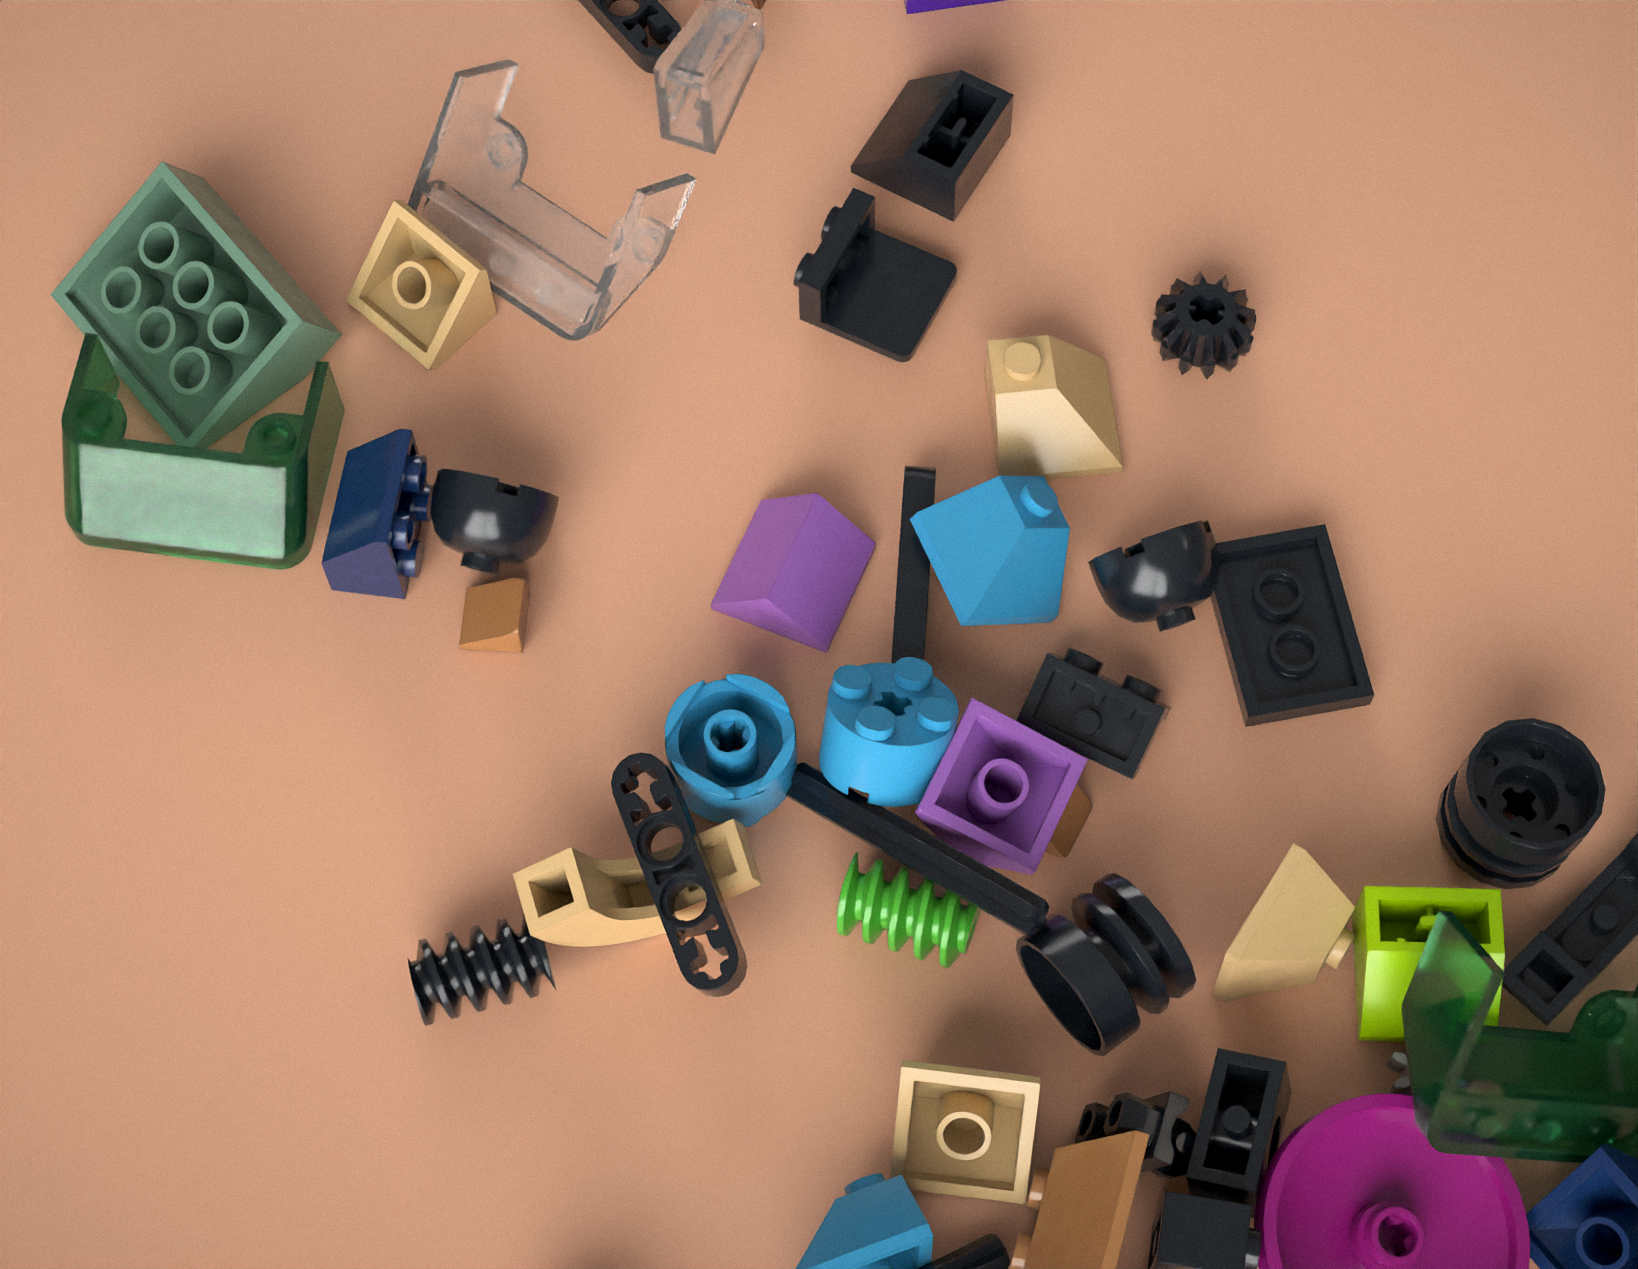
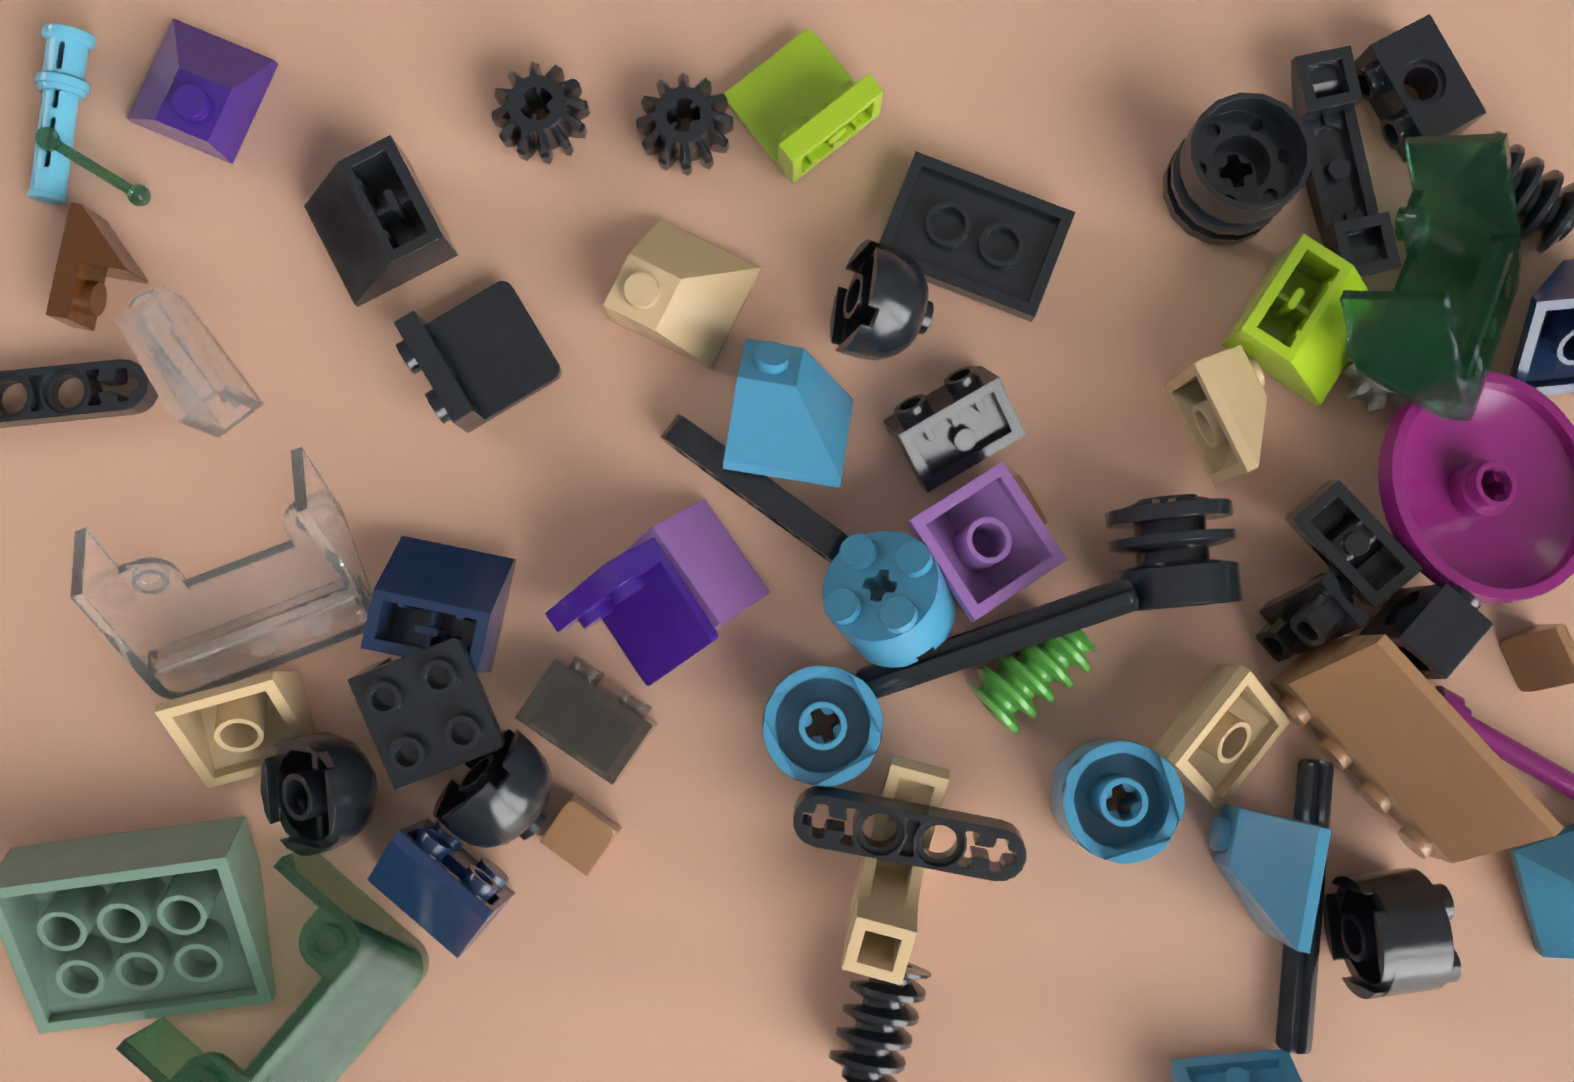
camera: 60 degrees left, 20 degrees up
(403, 373) = (318, 791): none -> black cylinder
(527, 408) = (426, 711): none -> black bracket
(605, 556) = (588, 718): none -> clear smoke brick
(628, 377) = (439, 594): none -> dark blue slope
(749, 520) = (643, 609): none -> dark purple bracket
(833, 1020) = (1145, 815): none -> dark azure brick
(1125, 208) = (533, 92): none -> black gear
(1295, 412) = (803, 104): none -> lime bracket

